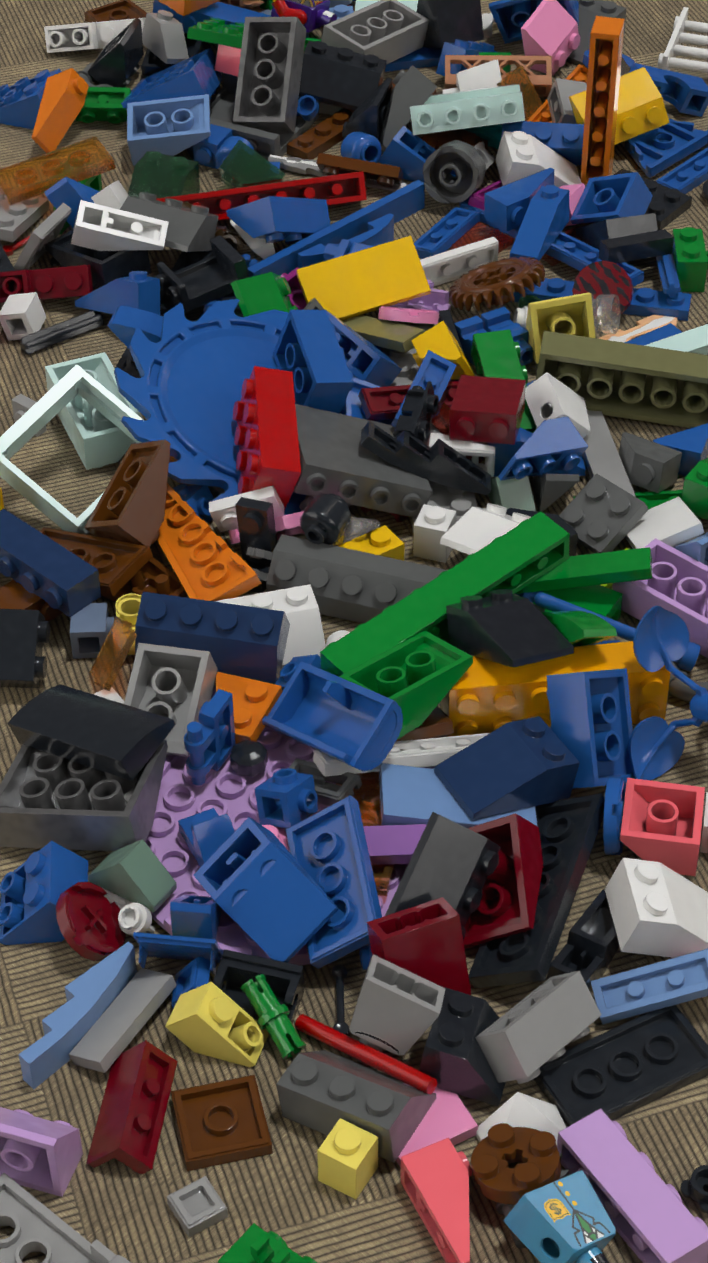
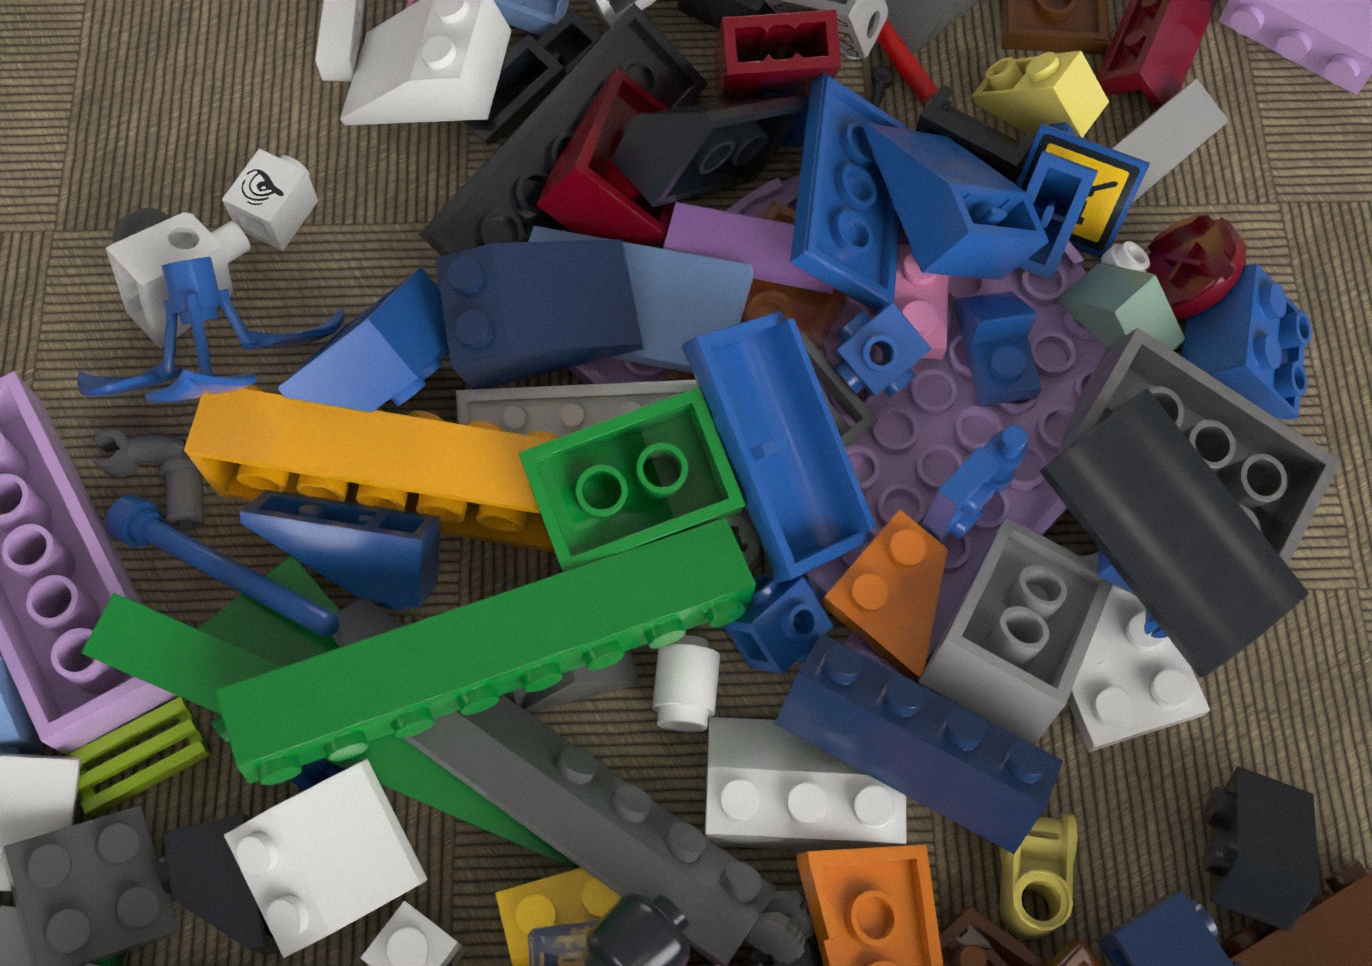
camera: 165 degrees left, 25 degrees up
(86, 1001) = (1211, 160): medium blue slope -> none
(89, 630) = (1113, 886): sand blue brick -> none
(113, 653) = (1092, 776): clear orange piece -> none
(248, 758) = (907, 485): black tile -> none
(273, 1016) = (970, 83): green pin -> none
(504, 630) = (430, 511): black slope -> none
(581, 627) = (321, 503): green slope -> none
(613, 815) = (410, 213): blue tile -> none
(663, 823) = (350, 191): coral slope -> none

